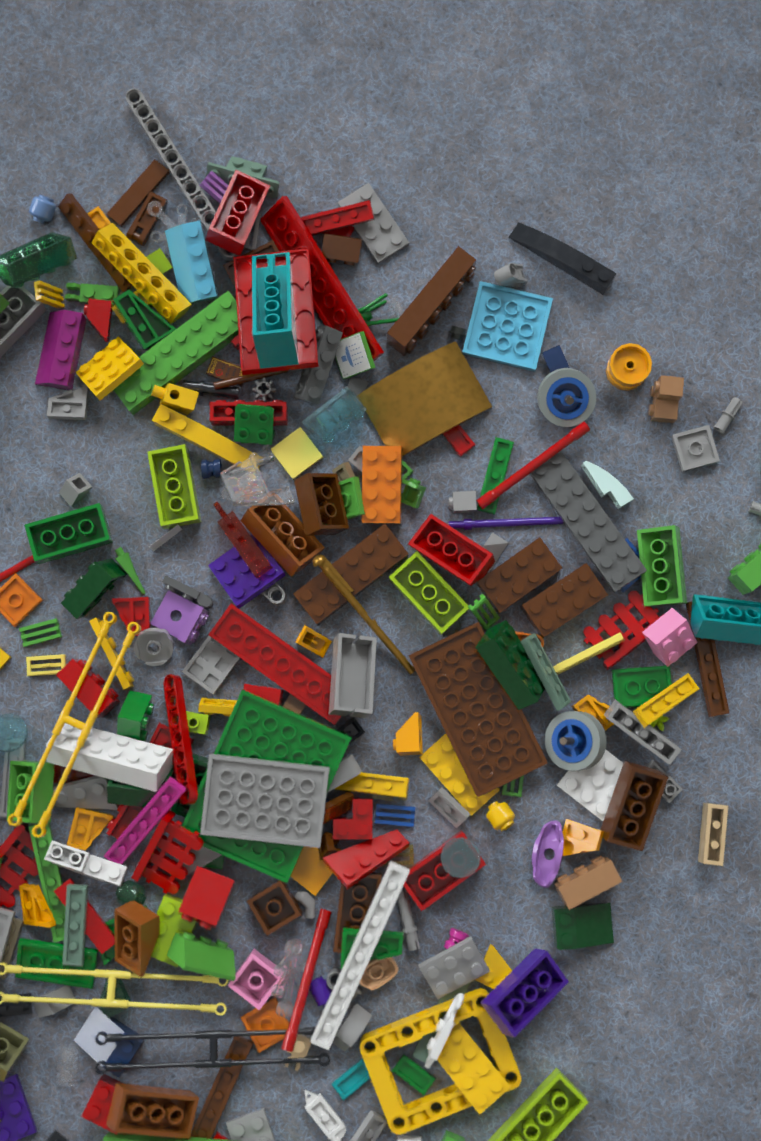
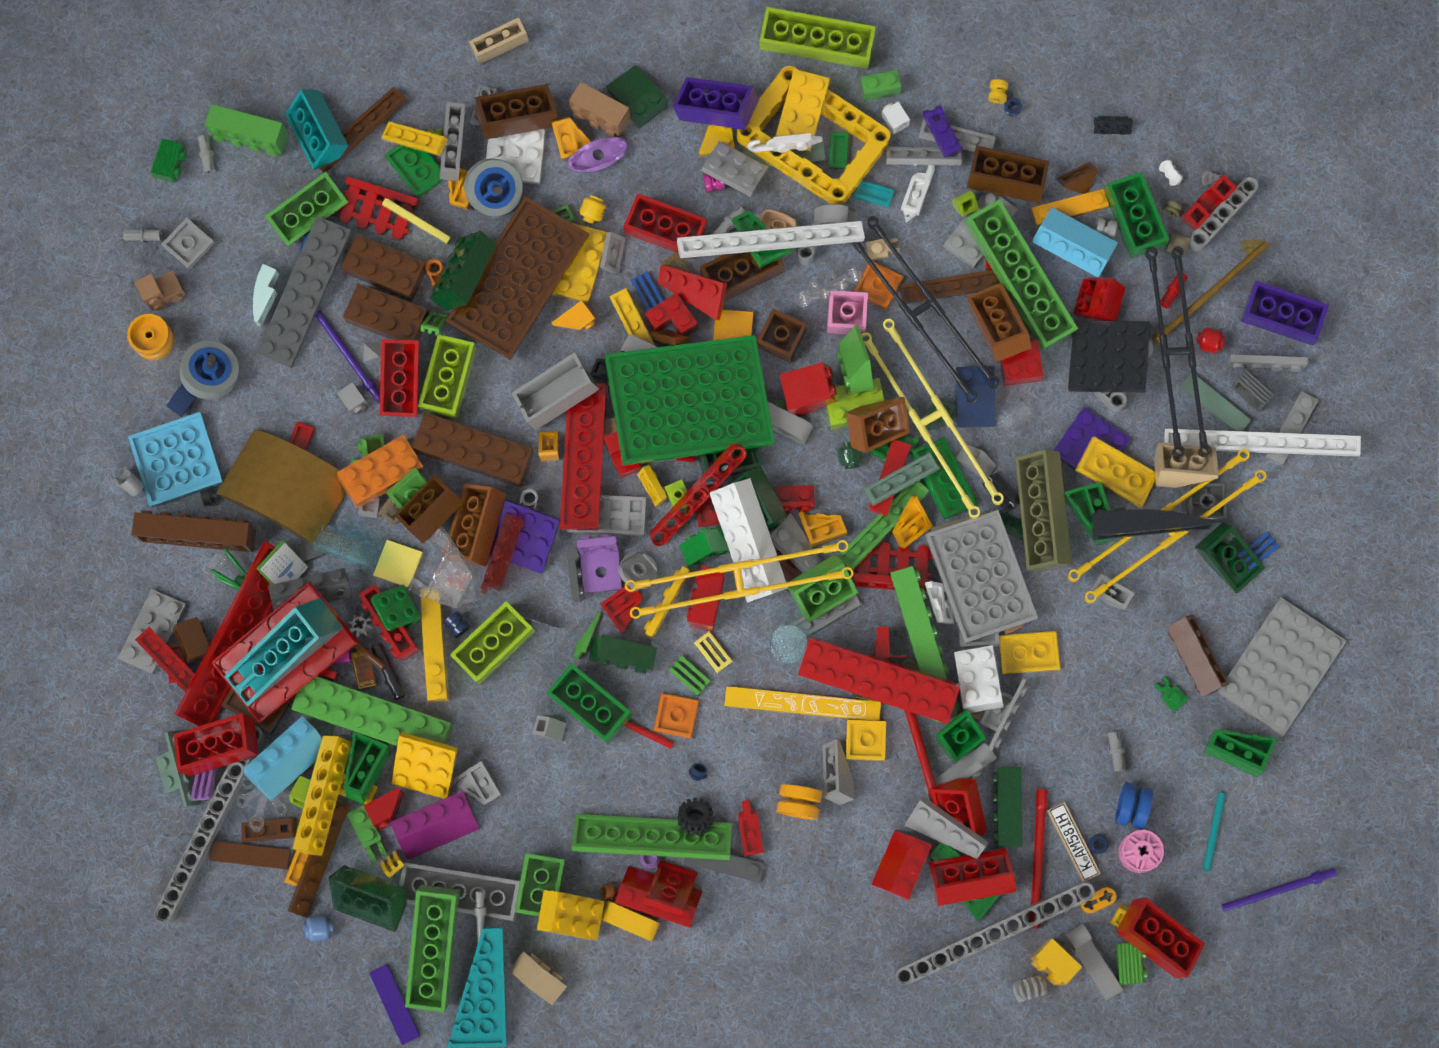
camera: 120 degrees left, 5 degrees down
(85, 863) = (849, 504): white slope -> none
(145, 821) = (782, 476): dark pink tile -> none
(167, 845) = (788, 444): red fence -> none
(183, 401) = (413, 688): yellow torso -> none
(264, 800) = (699, 389): light grey plate -> none
(292, 1031) = (867, 256): red piece -> none
(307, 901) = (761, 314): light grey arm -> none
(320, 991) = (823, 258): dark purple brick -> none
(328, 845) = (707, 326): reddish brown tile -> none
(346, 590) = (486, 443): pearl gold bar -> none
(460, 857) = (644, 215): clear light blue tile -> none
(496, 470) = (312, 389): green tile -> none
(545, 671) = (451, 242): sand green tile -> none
(564, 257) = (85, 450): black slope -> none
(572, 436) = (331, 378): red piece -> none
(670, 637) = (361, 165): bright pink brick -> none

